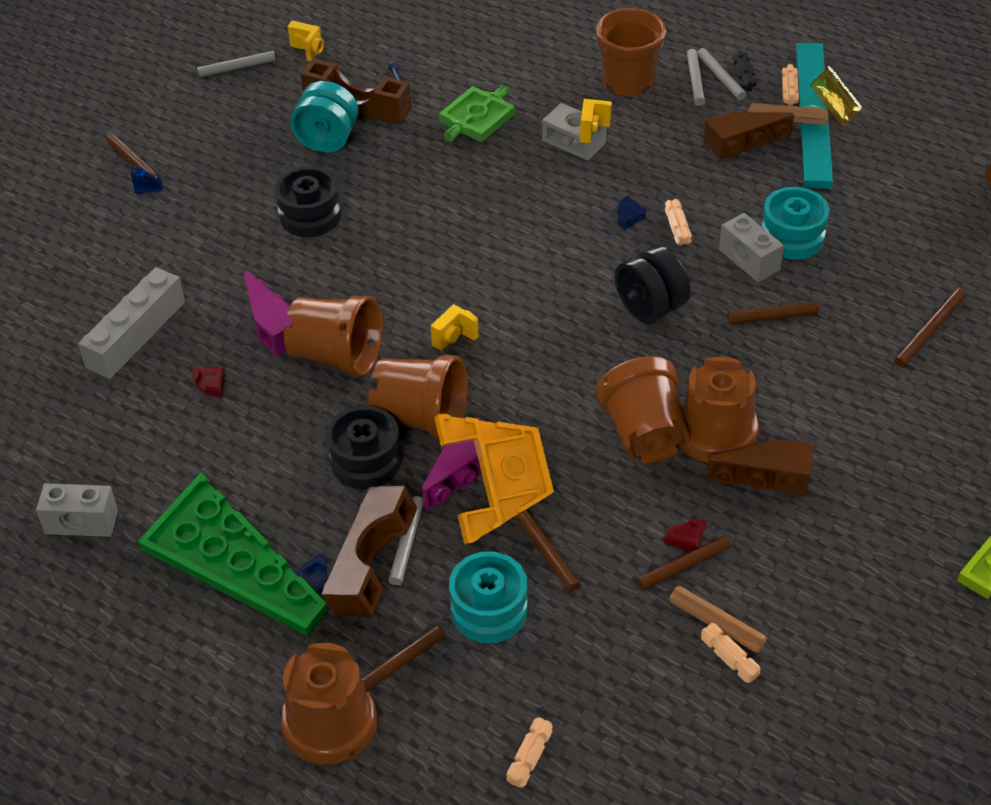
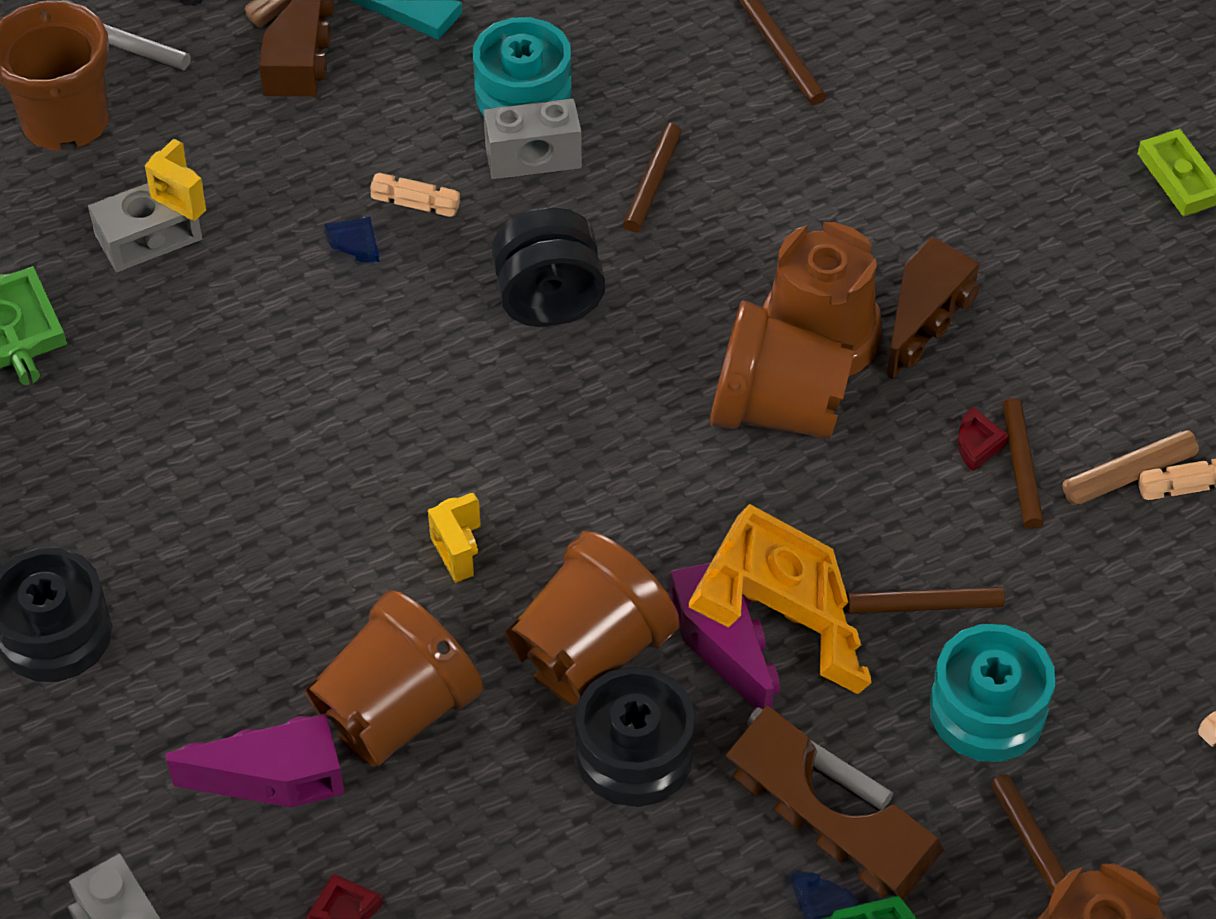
camera: 65 degrees left, 5 degrees up
(721, 74) = (152, 12): light grey bar -> none

